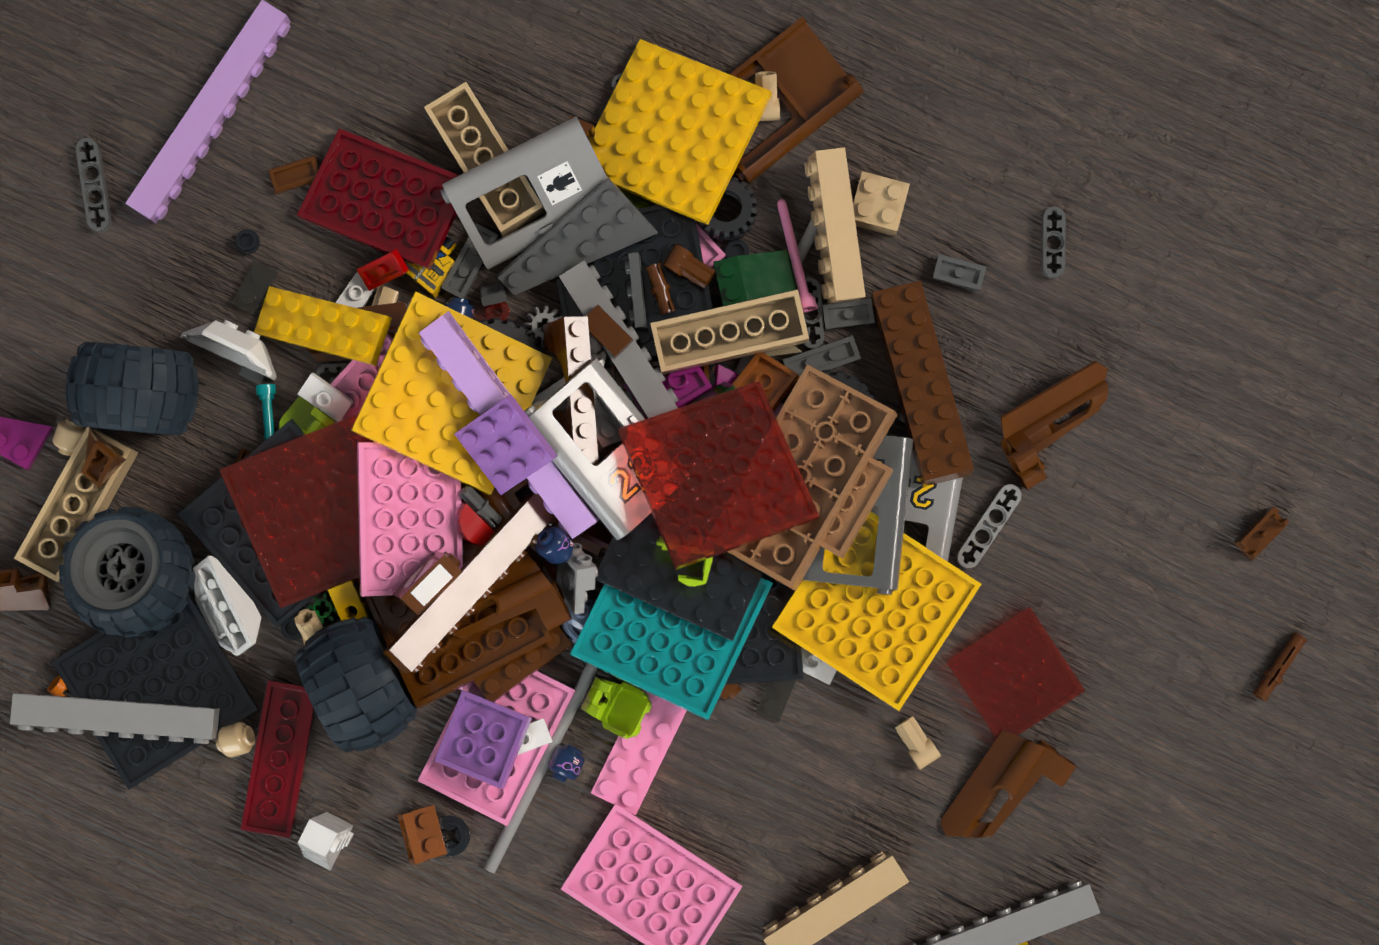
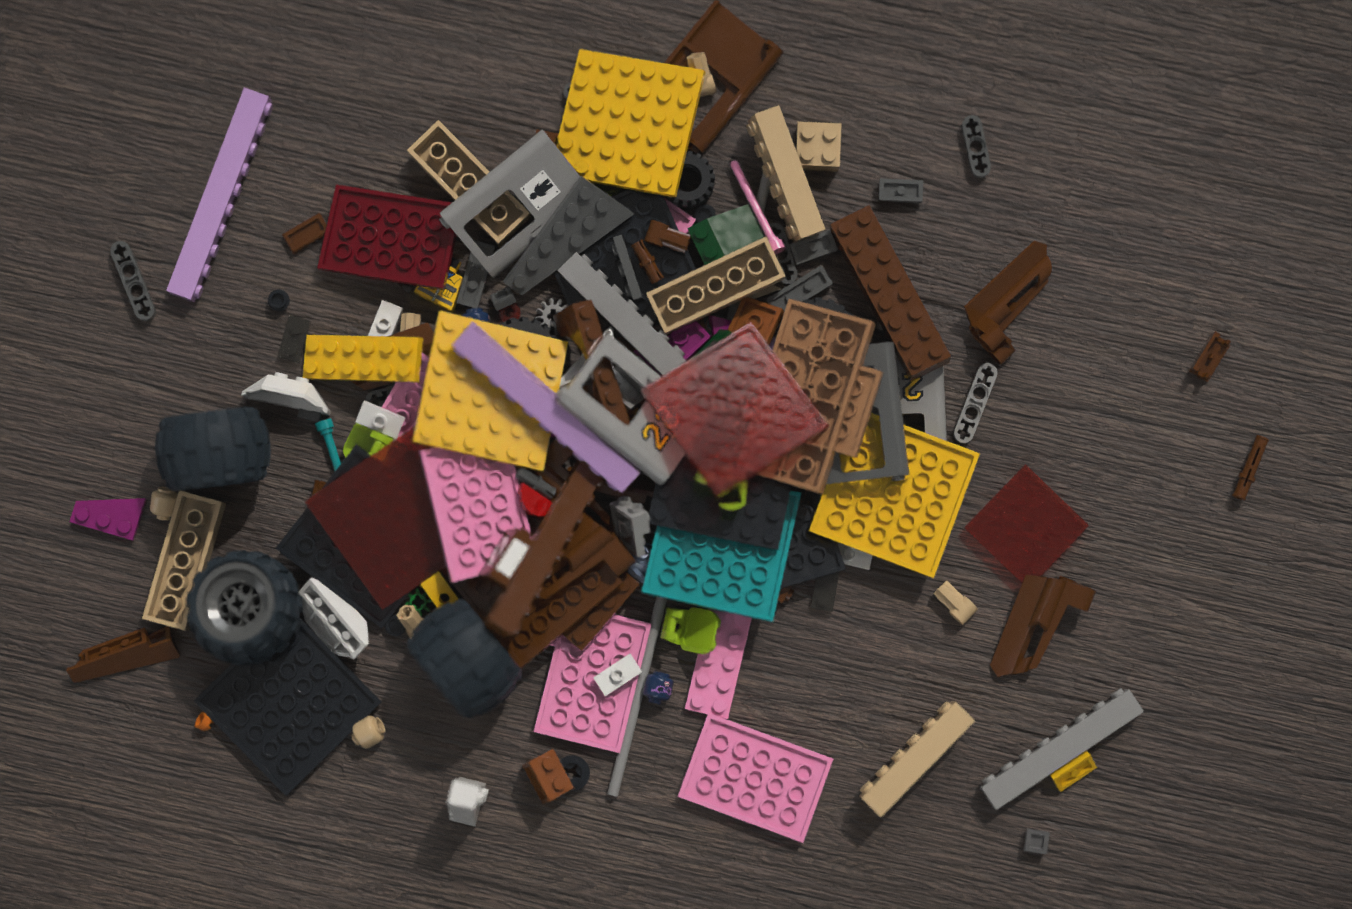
camera: 15 degrees left, 0 degrees up
(100, 460) = (197, 516): reddish brown slope -> none
(114, 716) = (260, 734): light grey brick -> none
(278, 760) = (410, 740): dark red plate -> none
(382, 269) = (403, 298): red plate -> none
(483, 739) = (582, 682): medium lavender plate -> none
(506, 444) = (547, 424): medium lavender plate -> none
(554, 545) = (607, 502): dark blue head -> none
(608, 331) = (611, 308): reddish brown tile -> none

